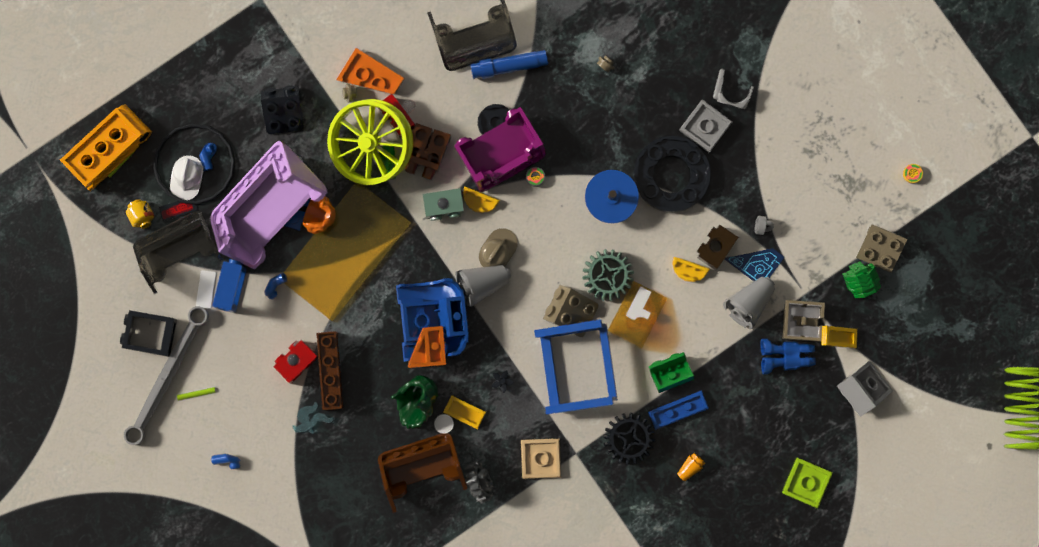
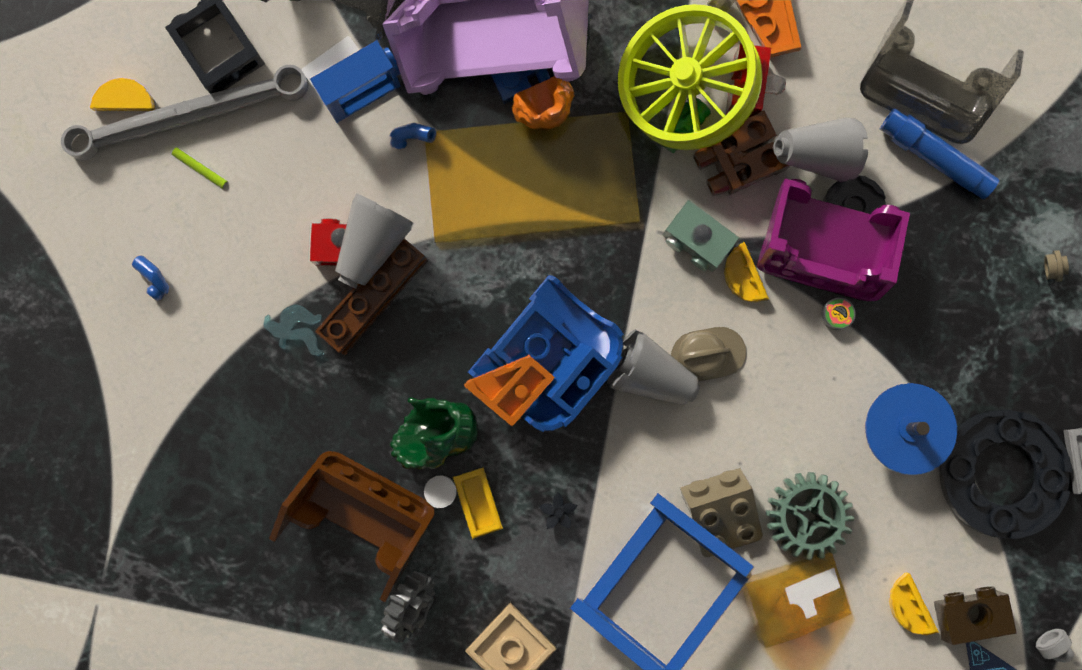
camera: 45 degrees right, 0 degrees up
(130, 397) = (122, 95): none -> yellow tile
(307, 348) = (369, 240): none -> light grey cone
(457, 114) = (825, 148): none -> light grey cone

